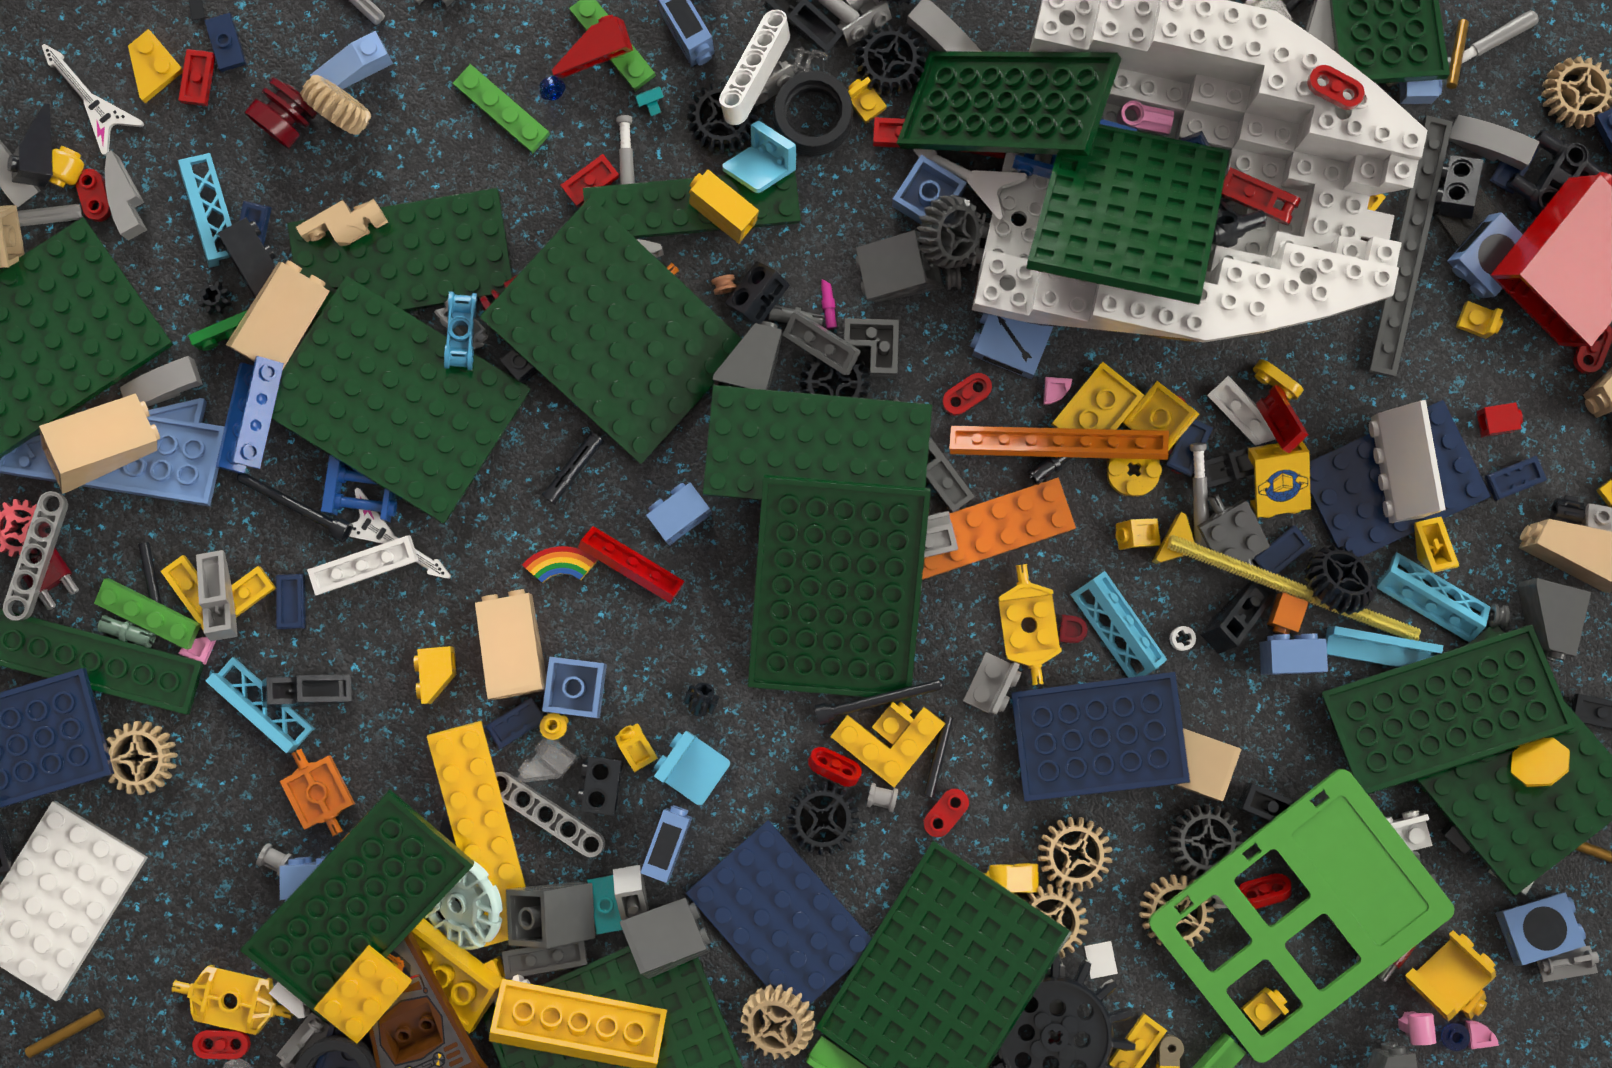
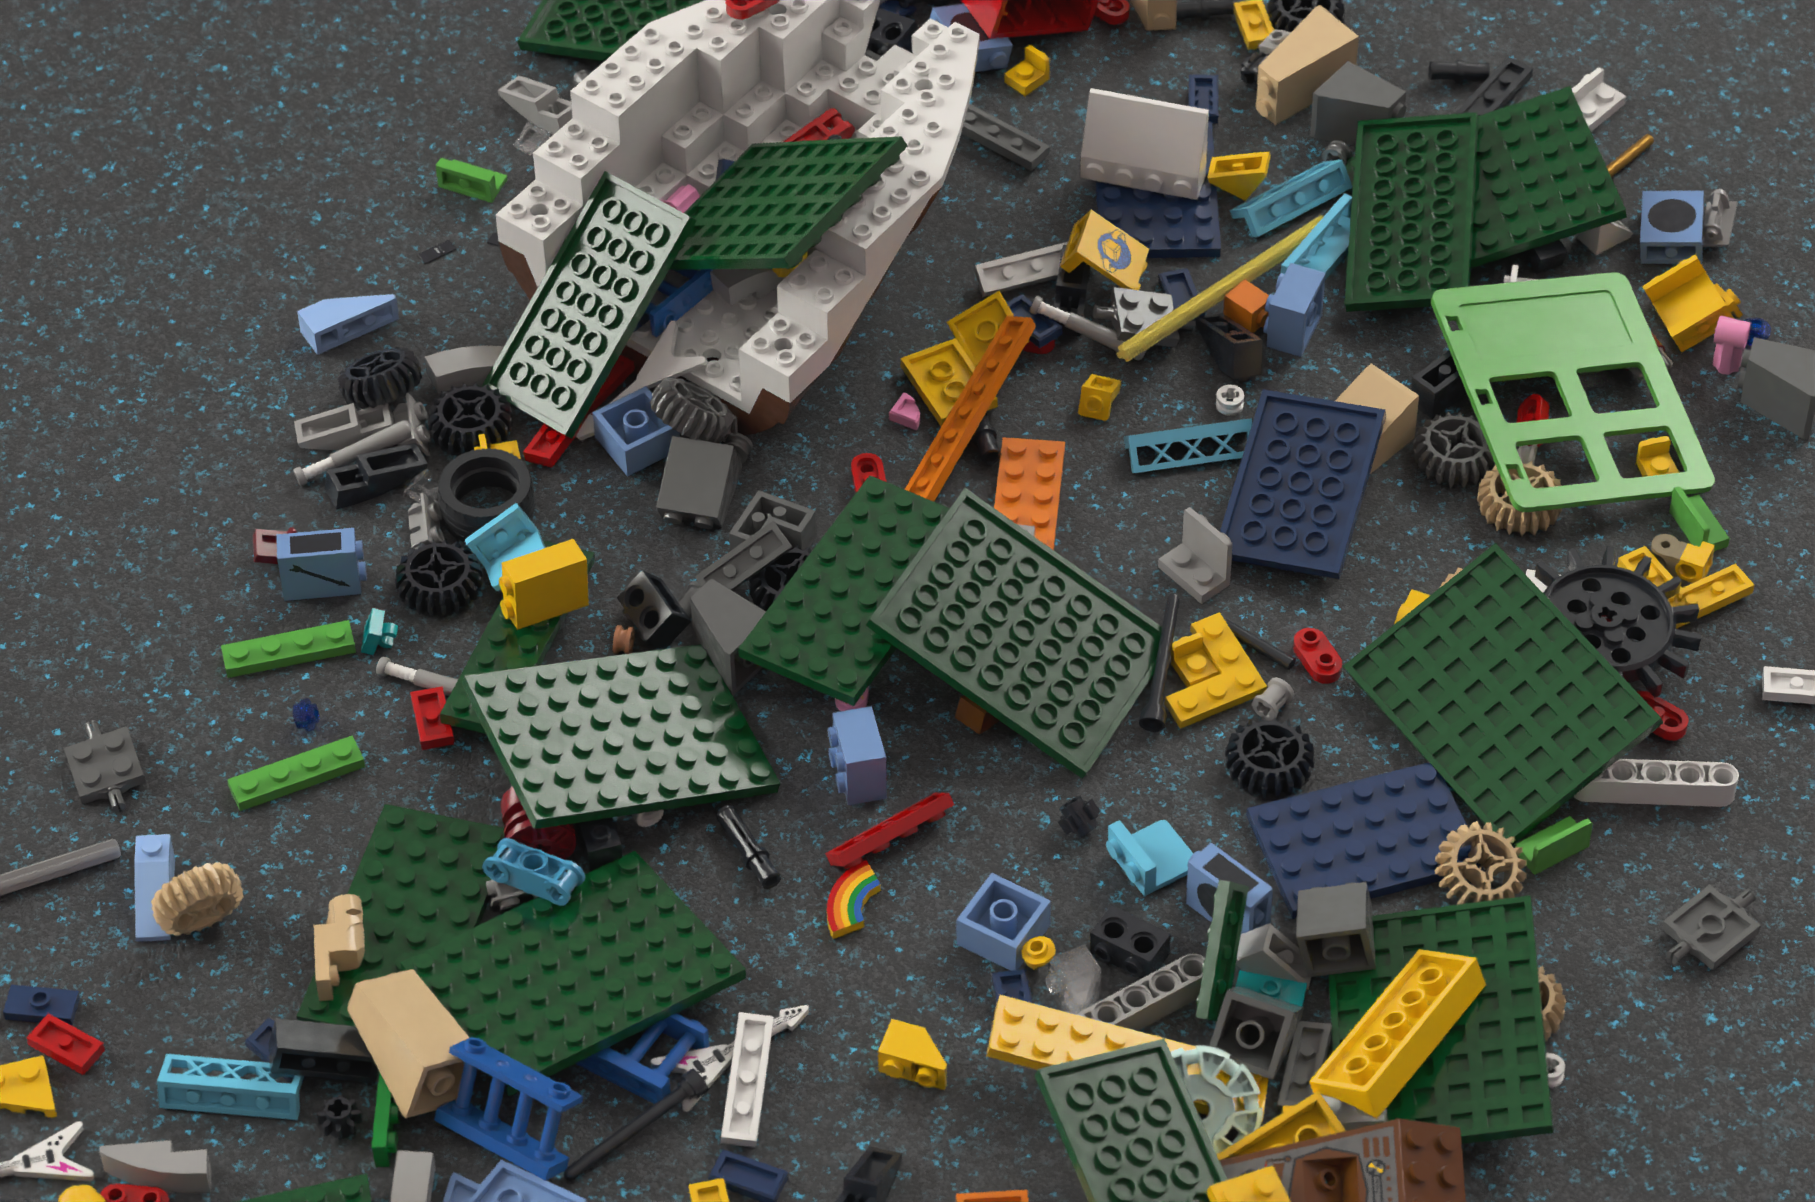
camera: 65 degrees left, 35 degrees down
(280, 112) = (168, 962): dark red wheel -> none
(510, 645) = (925, 966): tan slope -> none
(597, 45) = (290, 639): red slope -> none
(601, 864) = (1222, 948): none -> dark green plate
(635, 747) = (1098, 895): yellow bracket -> none
(755, 67) = (407, 516): white beam -> none
(828, 305) = (695, 563): dark pink piece -> none
(834, 766) = (1224, 723): red plate -> none
(1011, 344) = (834, 423): medium blue brick -> none
(1033, 602) = (1124, 505): yellow plate -> none
(1069, 865) = (1417, 549): tan gear -> none
(1072, 629) = (1172, 485): dark red tile -> none
(1132, 485) = (1045, 383): yellow plate -> none
(1180, 528) = (1117, 368): yellow slope -> none
(1269, 374) = (1000, 234): yellow plate -> none
(1282, 419) = (1045, 226): red plate -> none
(1340, 580) = (1235, 247): black gear -> none
(1480, 1035) = (1765, 311): bright pink tile -> none
(1499, 419) = (1139, 82): red brick -> none
(1540, 762) = (1499, 146): yellow piece -> none

